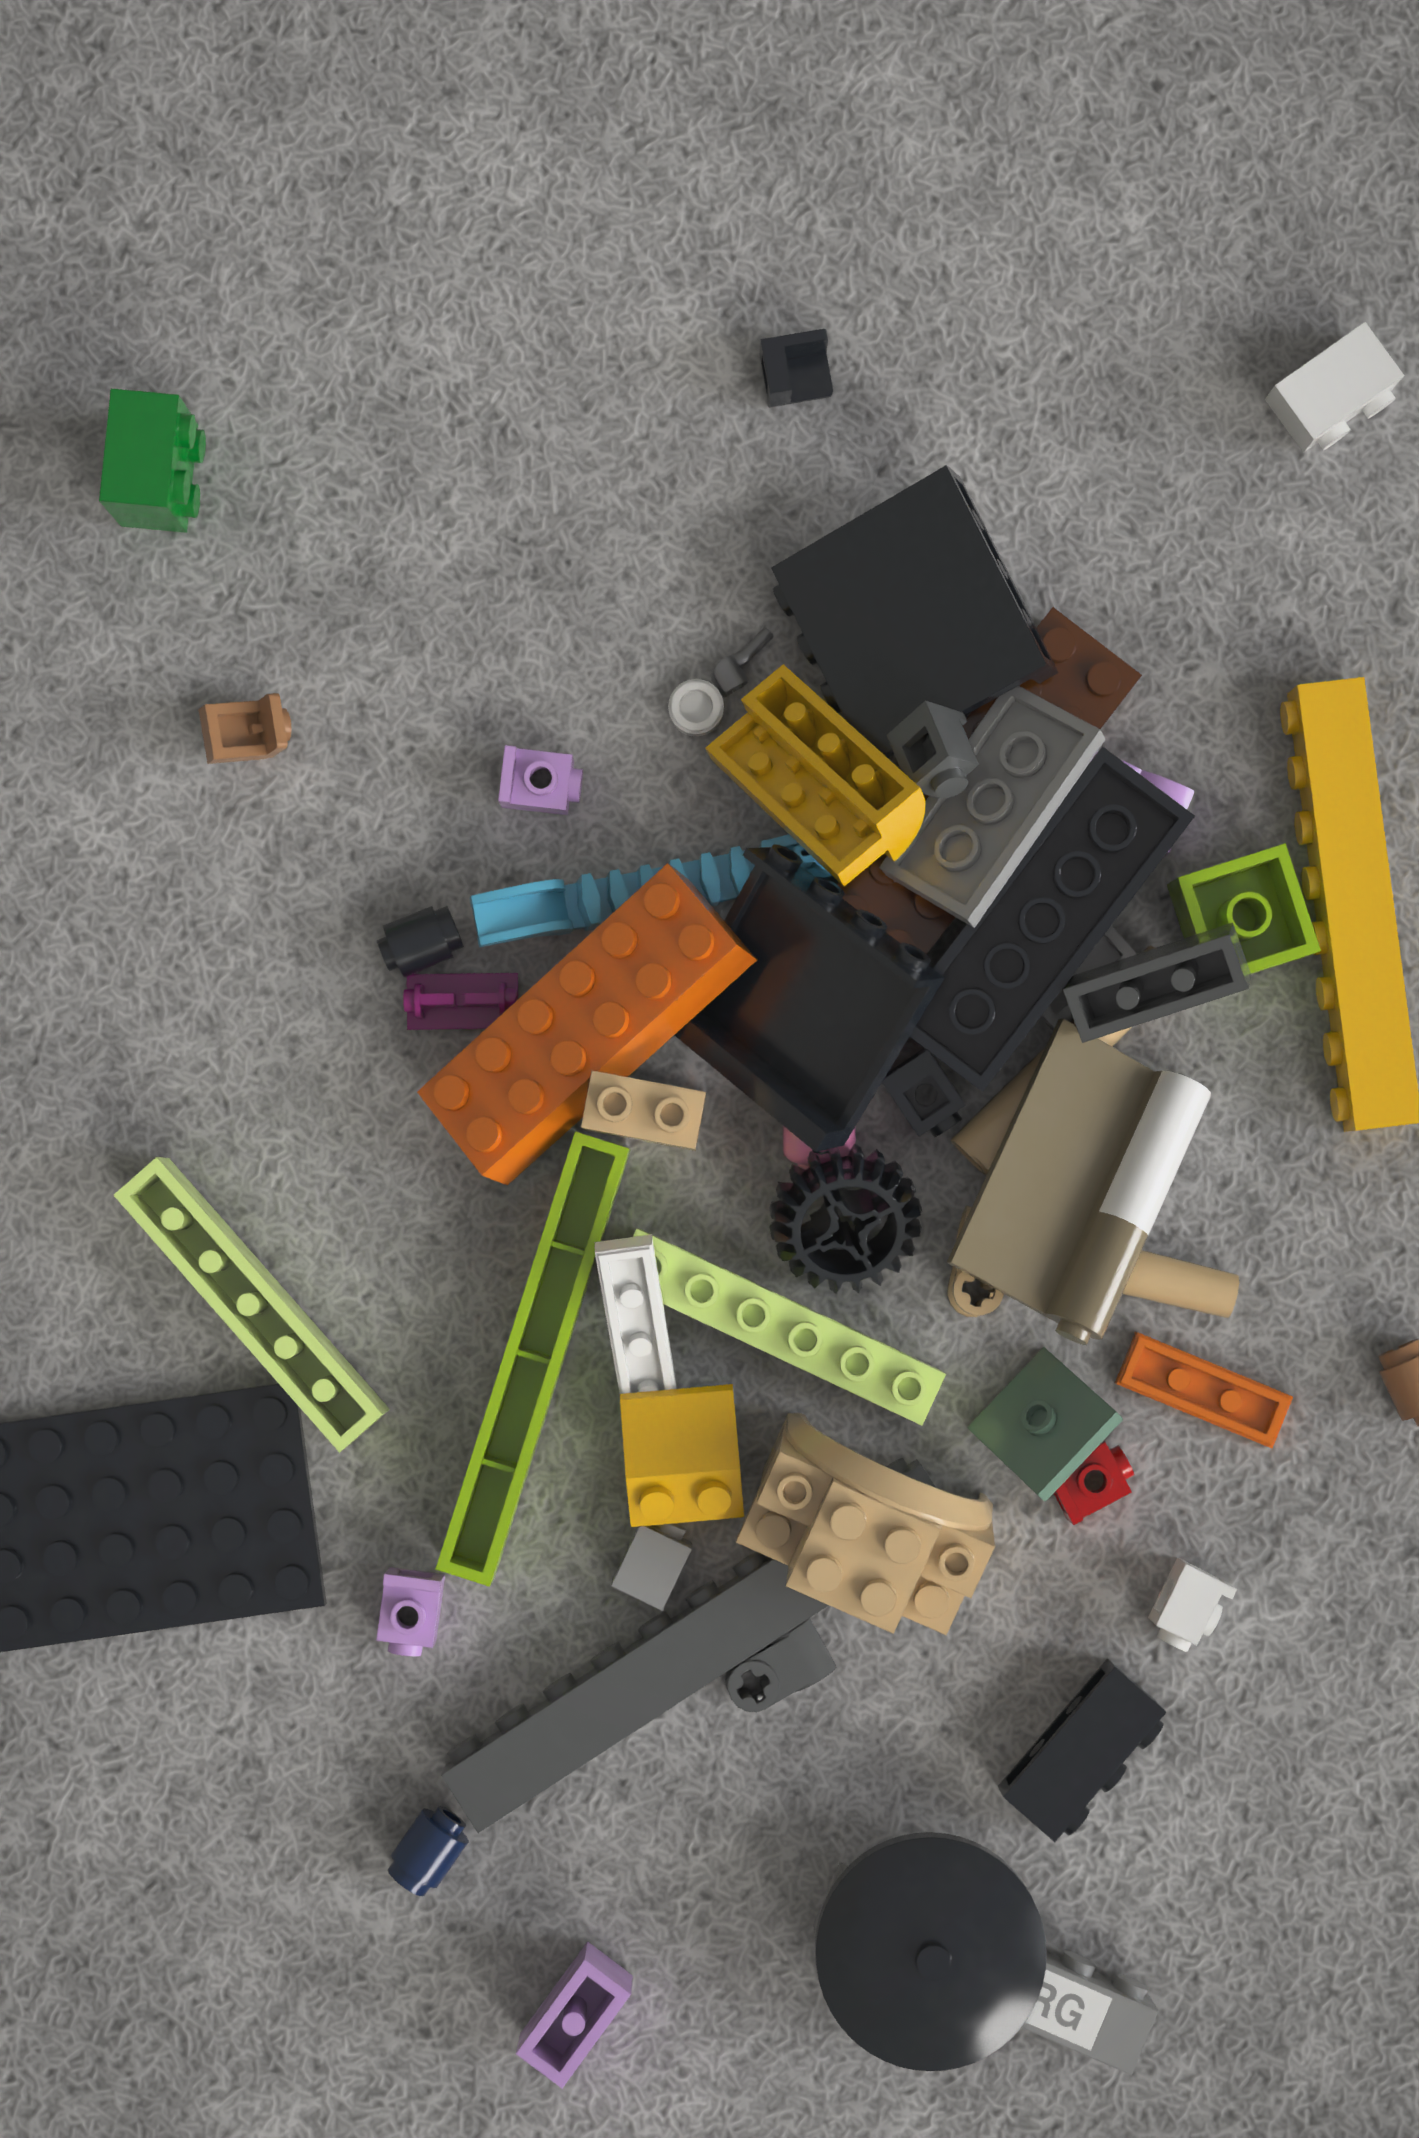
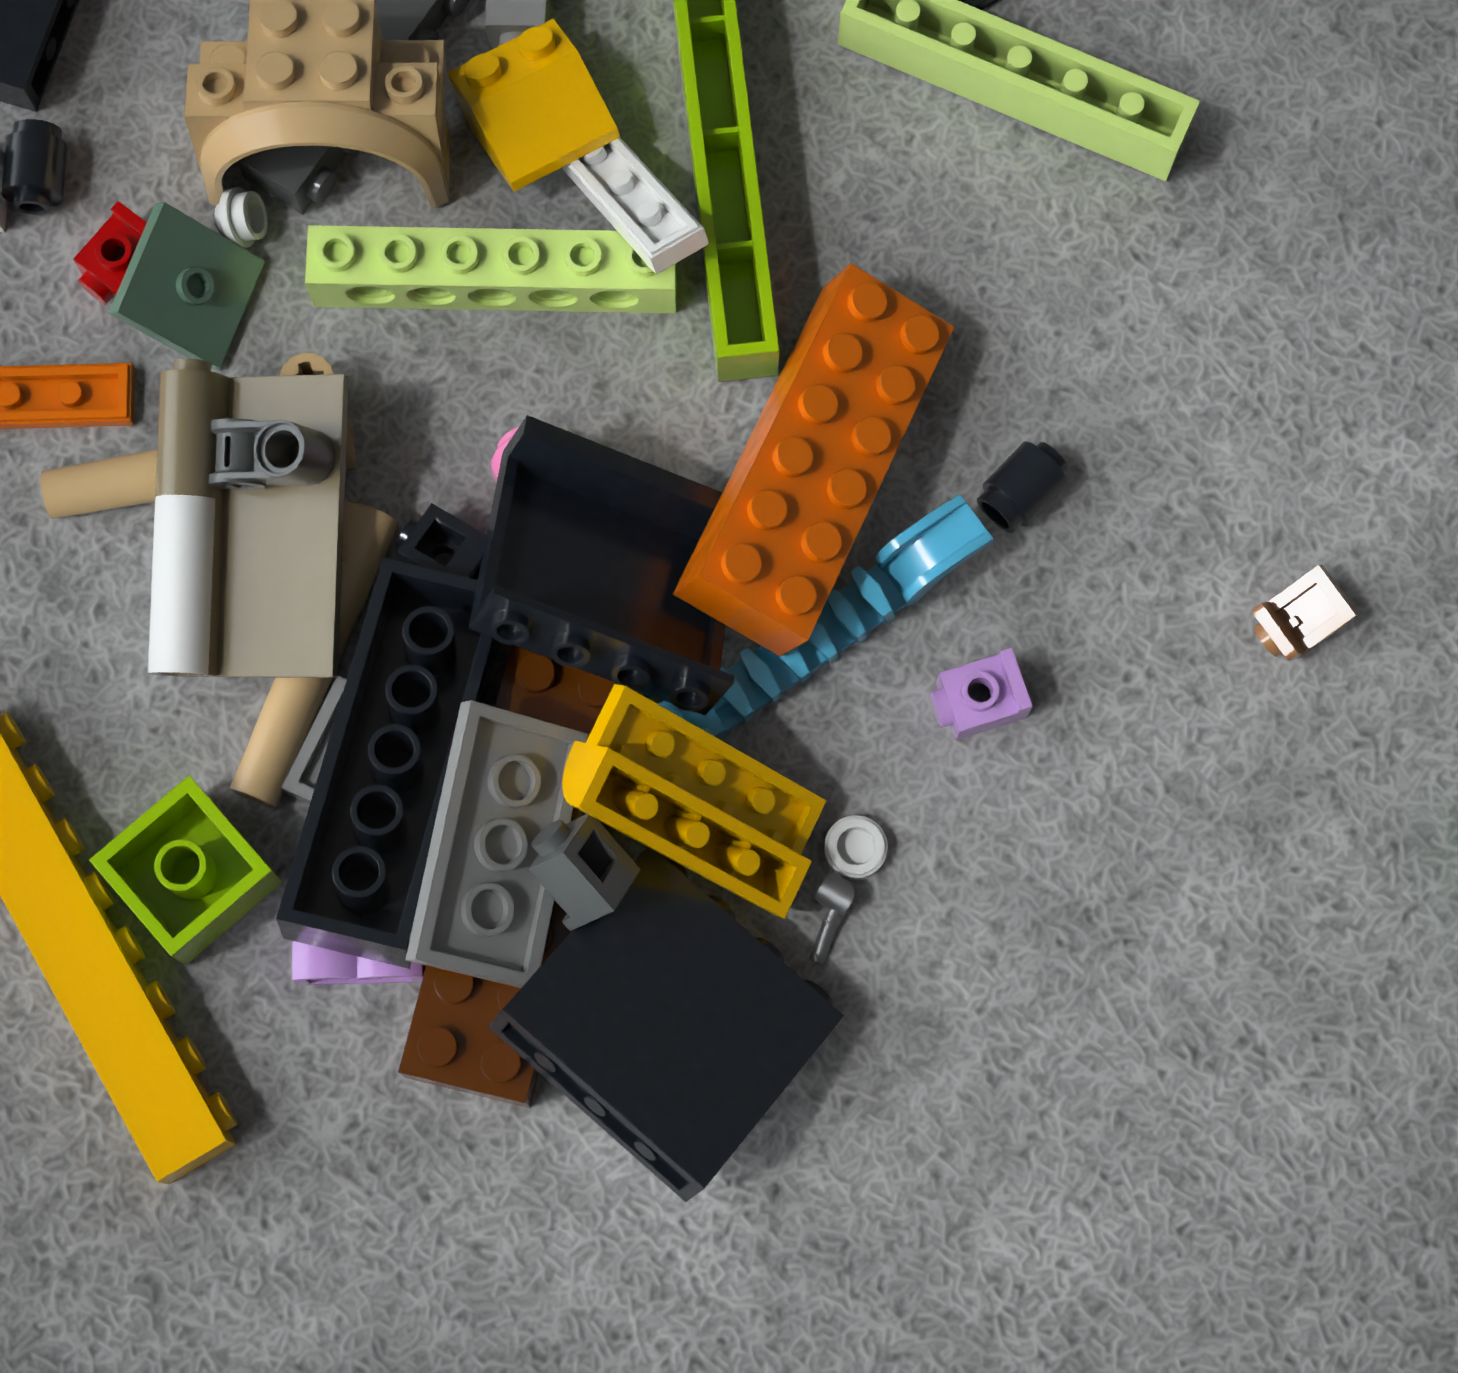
camera: 160 degrees right, 10 degrees down
(458, 999) = (955, 449): magenta hinge -> none
(643, 1110) = (714, 398): tan panel -> none
(796, 367) = (915, 1254): black panel -> none
(812, 1243) = (469, 391): black gear -> none
(972, 1471) = (241, 216): none -> white plate
(1050, 1226) = (259, 452): none -> dark grey piece
(1130, 1598) = (34, 166): none -> black brick
(1157, 982) = (244, 741): dark grey brick -> none

